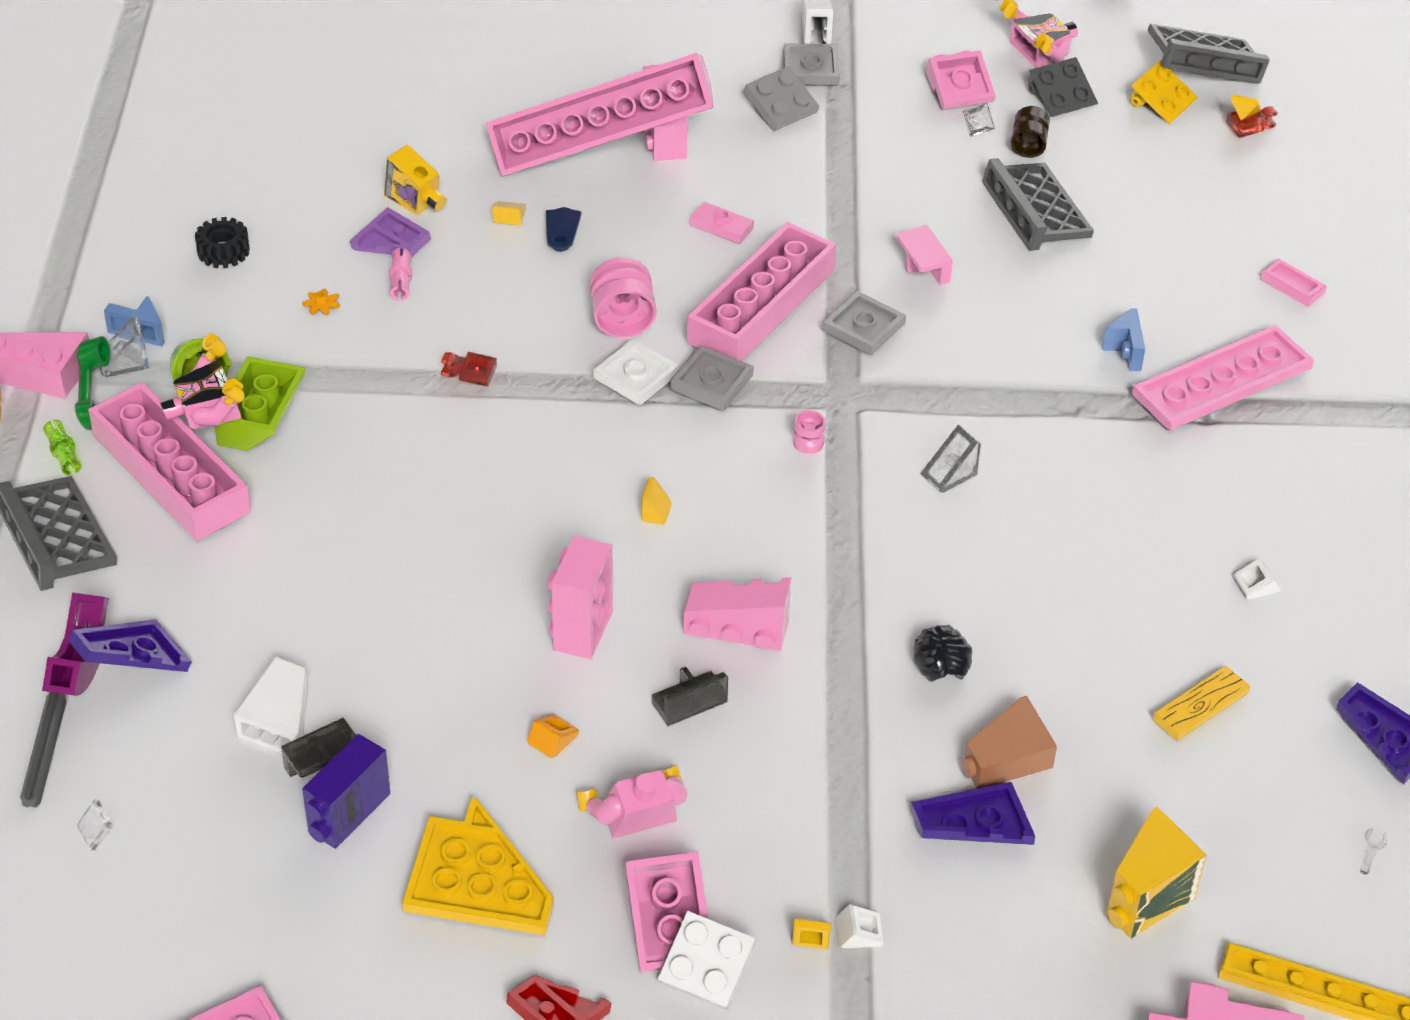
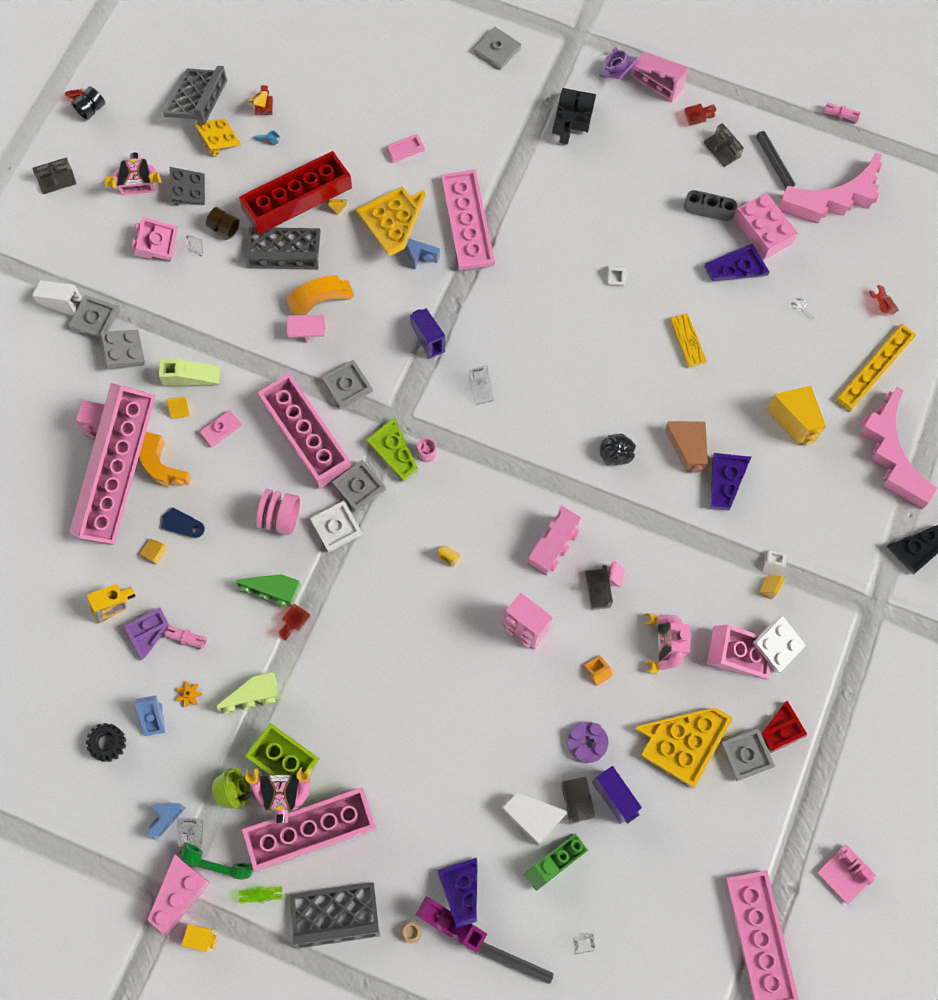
camera: 70 degrees left, 25 degrees up
(53, 617) = (411, 932): none -> tan plate
(214, 754) = (555, 862): none -> bright green slope
(273, 269) = (150, 715): none -> medium blue slope
(350, 356) = (255, 691): none -> yellowish green slope
(426, 734) = (595, 733): none -> medium lavender plate
(488, 967) = (747, 754): none -> light grey plate
(511, 334) = (274, 587): none -> bright green slope
(635, 169) = (150, 459): none -> light orange arch
(724, 709) = (616, 574): none -> bright pink slope
(728, 173) = (178, 407): none -> yellow slope
(780, 161) = (182, 372): none -> yellowish green slope
(788, 395) = (392, 448): none -> lime wing
(989, 244) = (317, 291): none -> light orange arch
(997, 379) = (428, 332): none -> dark purple slope
(1127, 181) = (295, 192): none -> red brick
(1143, 237) = (337, 204): none -> yellow slope
(1160, 288) = (392, 218): none -> yellow wing
(1202, 144) = (272, 135): none -> dark azure hand

